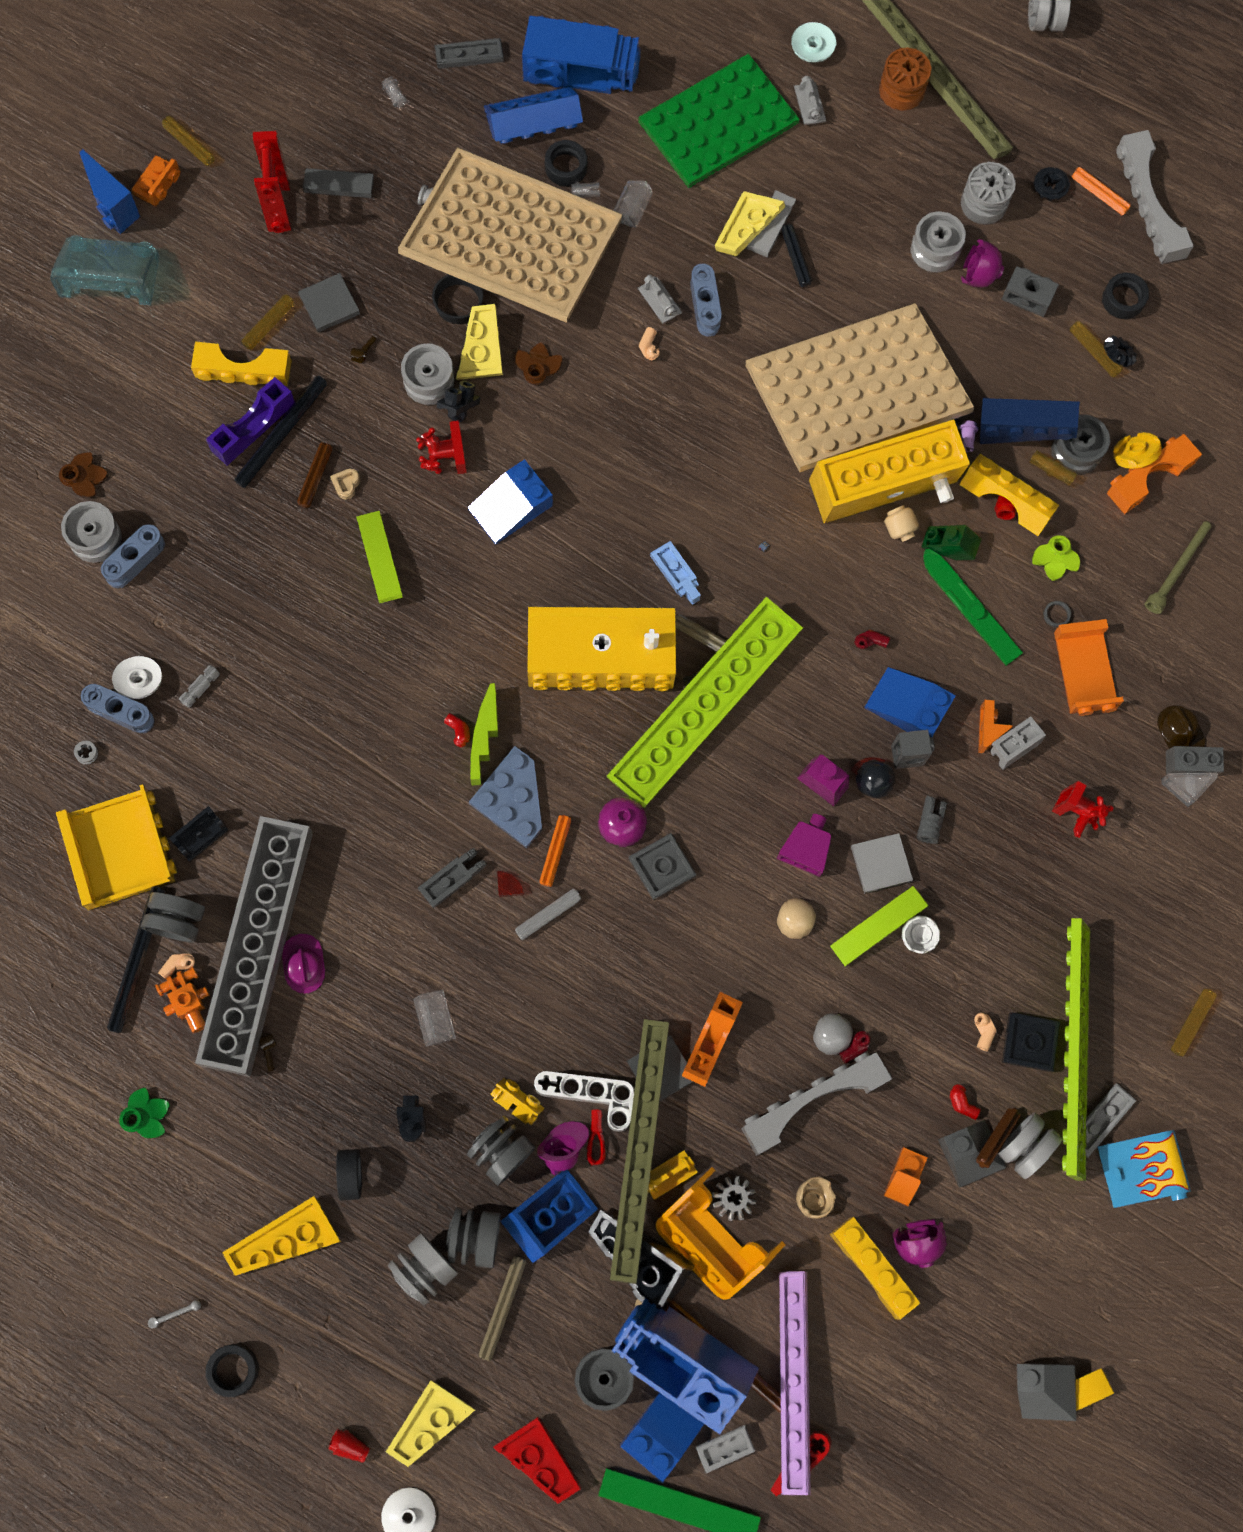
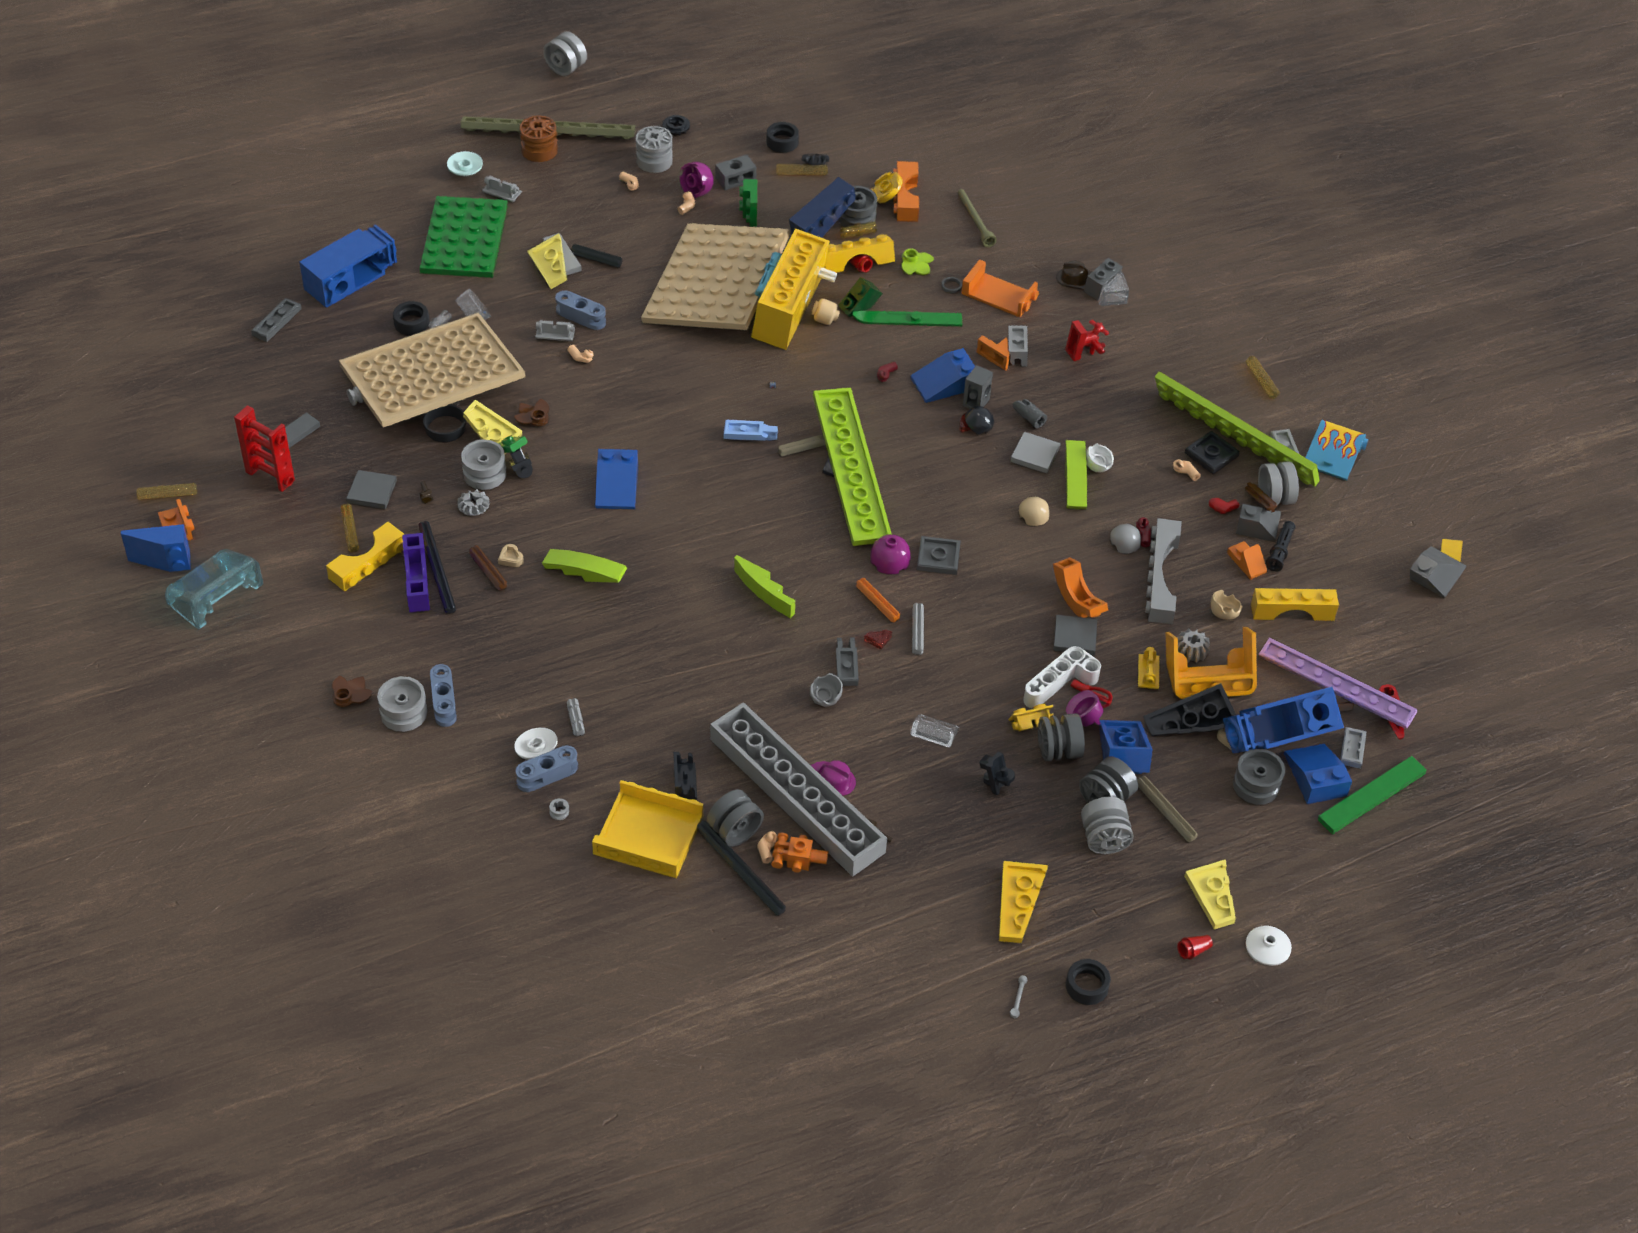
camera: 50 degrees left, 25 degrees down
(148, 1114) = (859, 927): green plate -> none
(349, 1174) = (1012, 822): black tyre -> none
(385, 409) = (468, 508): none -> light grey gear
(391, 87) = (261, 369): clear pin -> none
(396, 886) = (826, 690): none -> light grey hair
(442, 449) = (546, 486): red piece -> none
(461, 729) = (746, 597): red arm -> none
(463, 379) = (511, 444): none -> green plate
(511, 798) = (820, 601): sand blue plate -> none
(534, 114) = (359, 312): blue slope -> none
(538, 1456) = (1284, 847): red wing -> none
(601, 648) = (765, 490): yellow piece -> none
(639, 1152) = (1124, 666): olive plate -> none
(807, 846) = (993, 477): magenta torso -> none
(825, 779) = (956, 440): magenta torso -> none
(894, 431) = (769, 268): none -> medium azure pin
(921, 1243) = (1297, 572): magenta cylinder -> none
(932, 203) = (632, 181): none -> light nougat arm
(938, 241) = (660, 188): light grey wheel -> none
(942, 1203) = (1281, 545): none -> black pin
(946, 282) = (689, 203): none -> light nougat arm
(990, 340) = (749, 202): none -> green plate
(1101, 190) = (705, 108): orange axle -> none
(1169, 239) = (765, 99): light grey arch -> none

